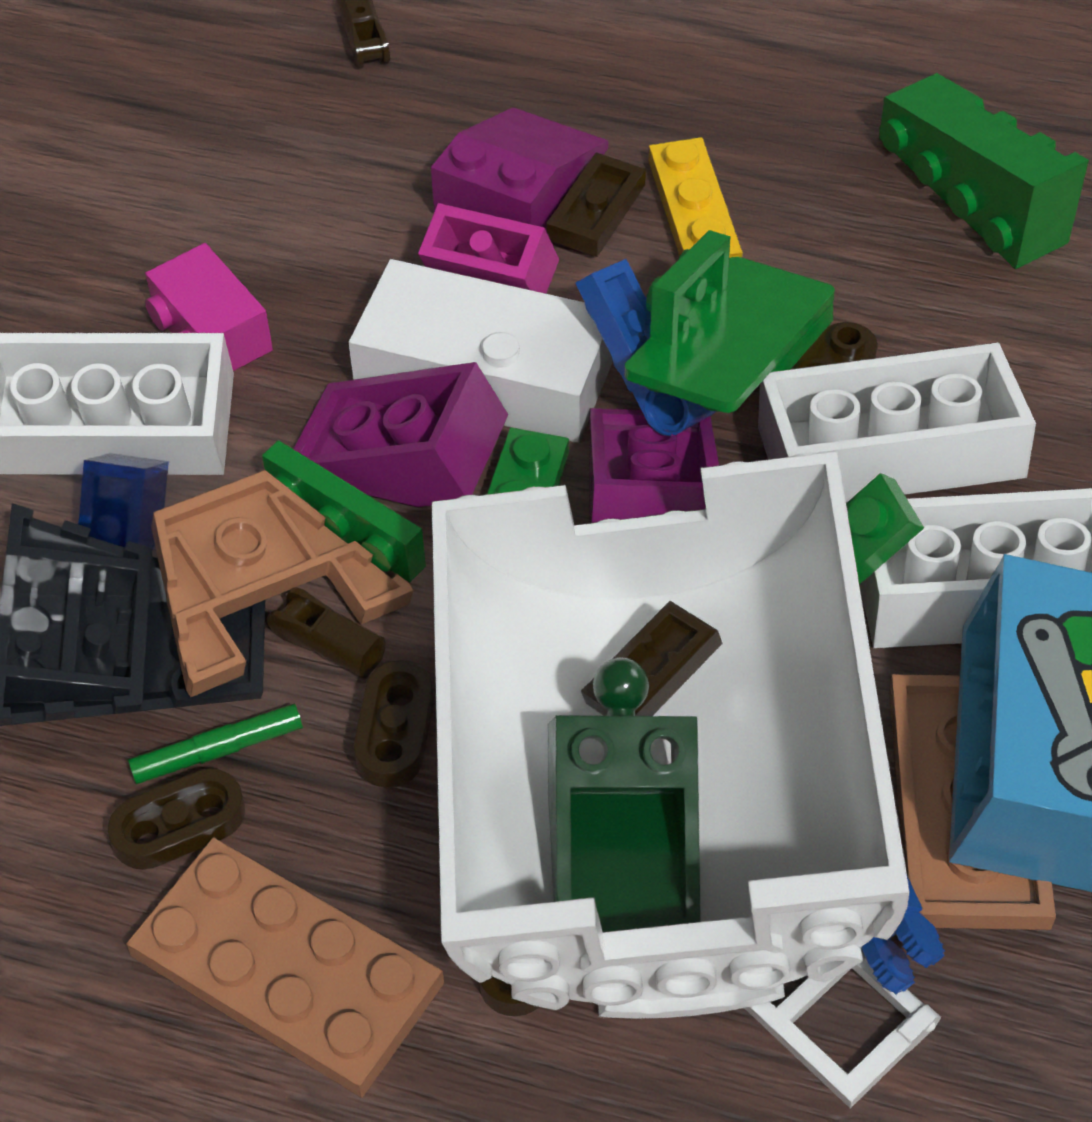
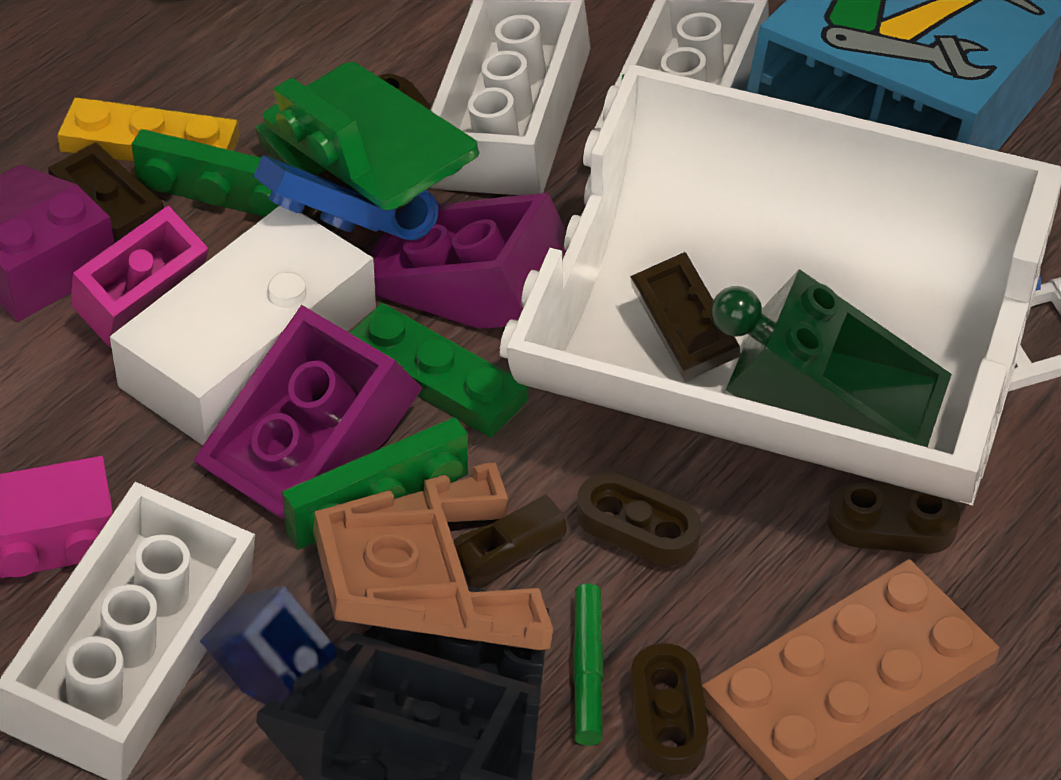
camera: 70 degrees left, 5 degrees down
(649, 229) = (200, 172): none -> green plate

